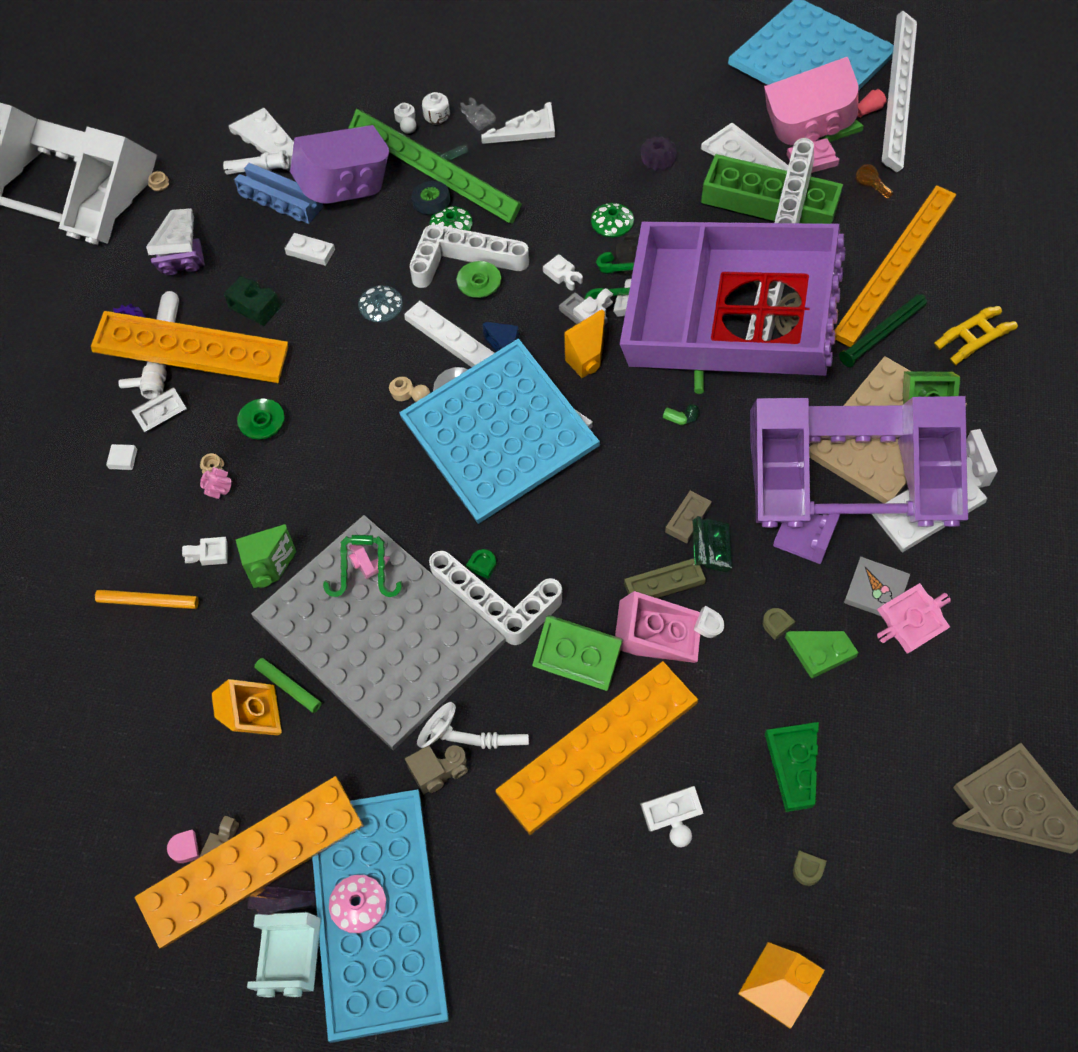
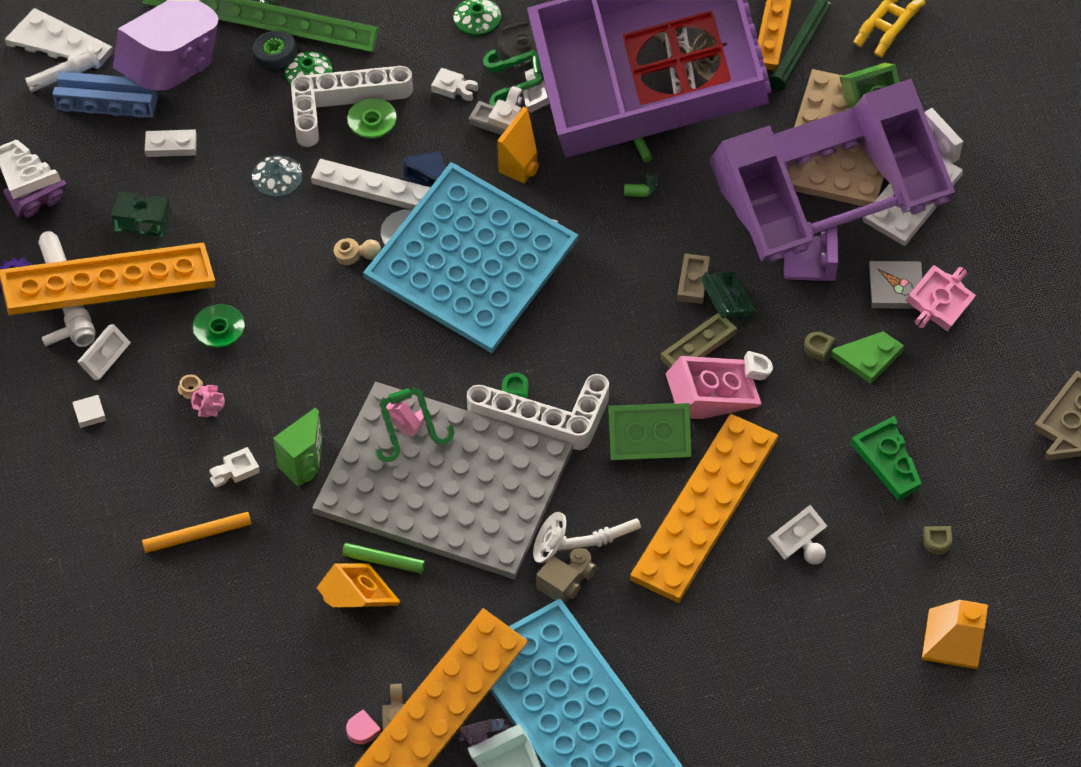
camera: 25 degrees left, 5 degrees down
(366, 914) = (554, 719): bright pink dish -> none

